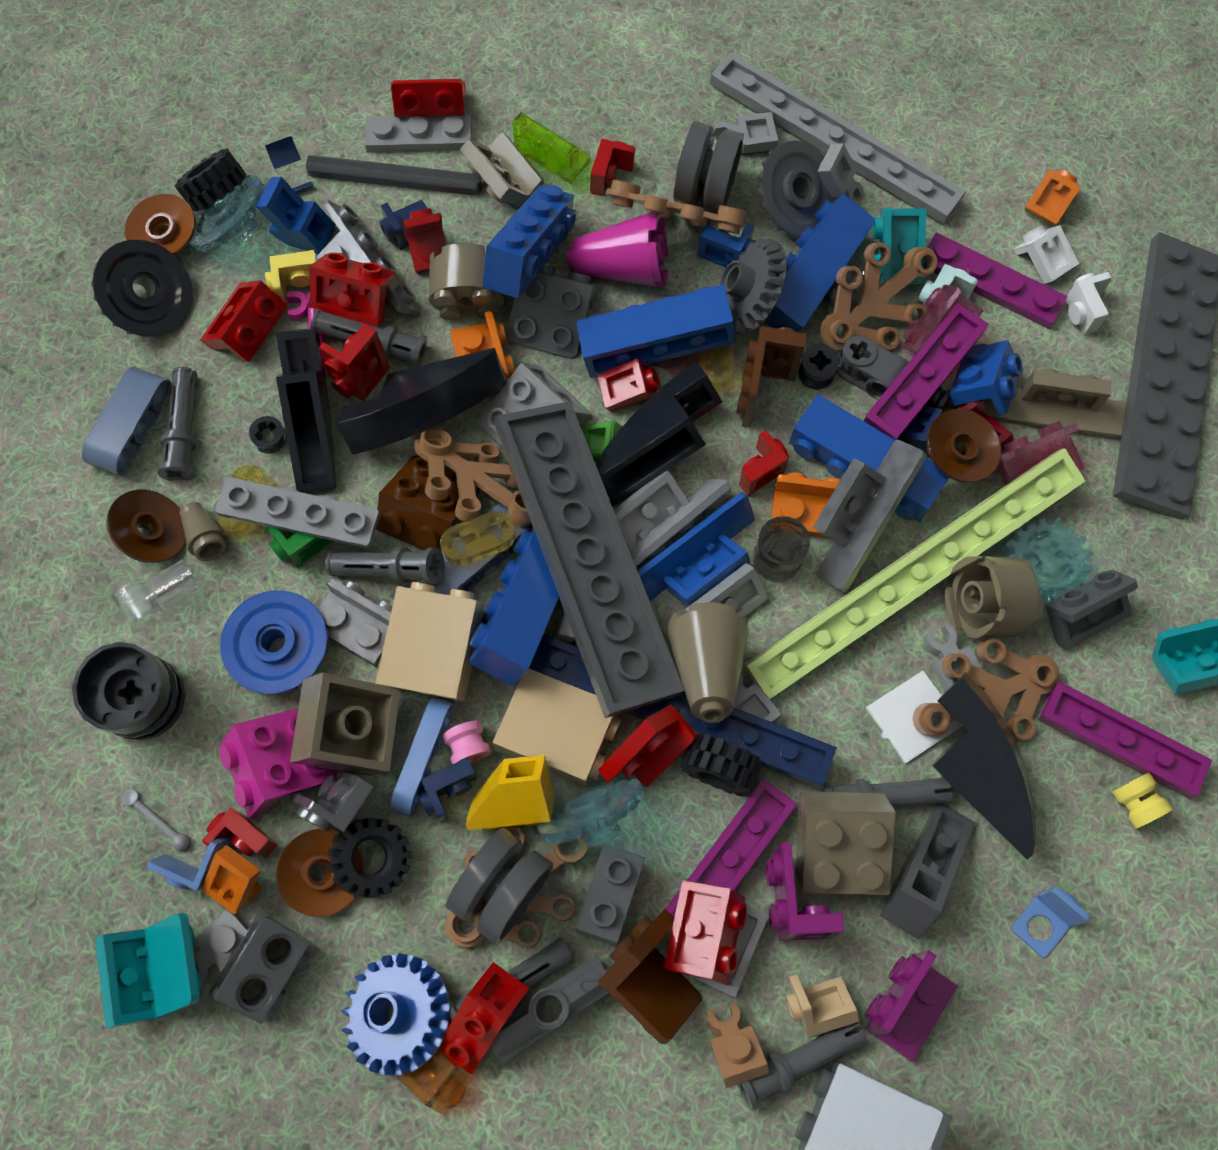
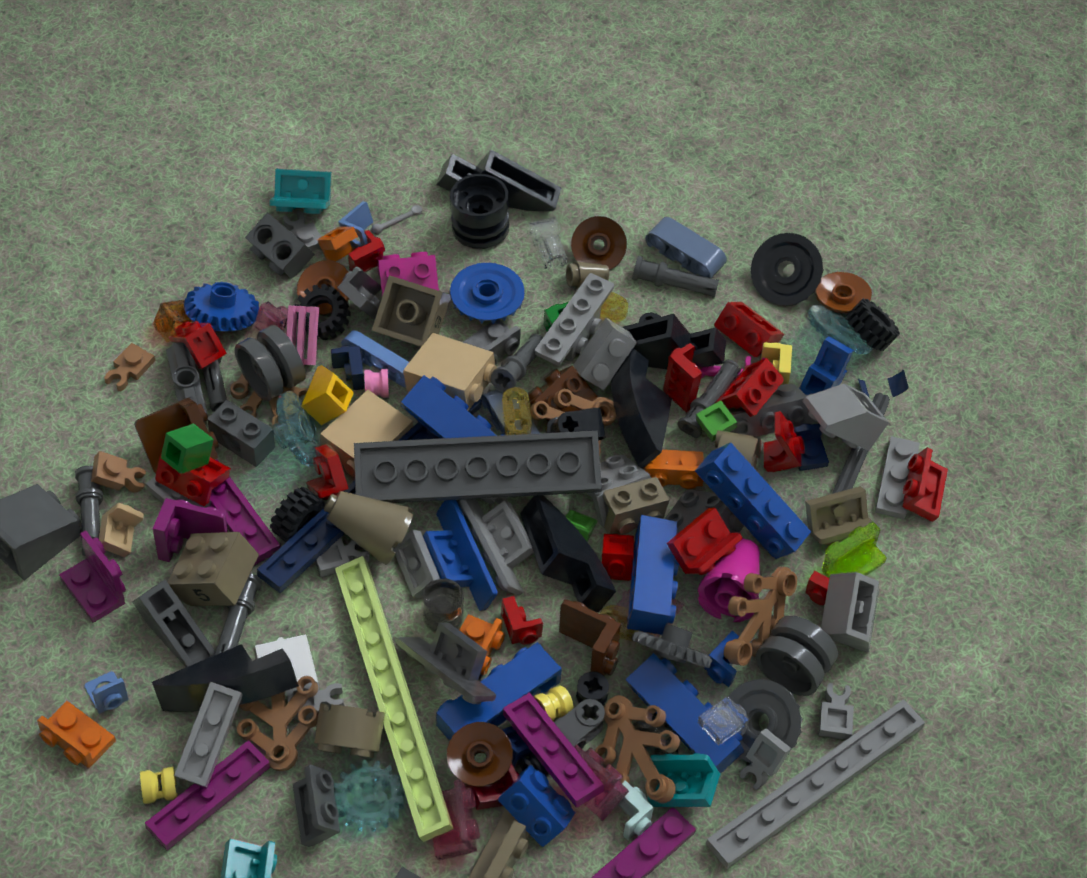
camera: 105 degrees right, 15 degrees down
(62, 733) = (525, 188): none -> black slope
(350, 456) = (604, 353): none -> light grey brick
(366, 174) = (847, 414): none -> light grey slope
(399, 927) = (270, 315): none -> clear pink tile
(414, 311) = (716, 418): none -> bright green tile
(451, 866) = (301, 335): none -> bright pink tile
(478, 459) = (577, 421): none -> black piece
(528, 1113) = (130, 363): none -> medium nougat plate
(564, 373) = (631, 501): none -> dark tan bracket
(607, 274) = (703, 543): none -> red bracket
(638, 119) = (851, 609): none -> light grey slope
(694, 940) = (187, 448): none -> green brick
(825, 210) = (724, 720): none -> clear bracket
(855, 397) = (555, 702): none -> light yellow wheel
(1077, 751) = (208, 734): none -> light grey plate
(1122, 935) = (76, 734): none -> orange bracket

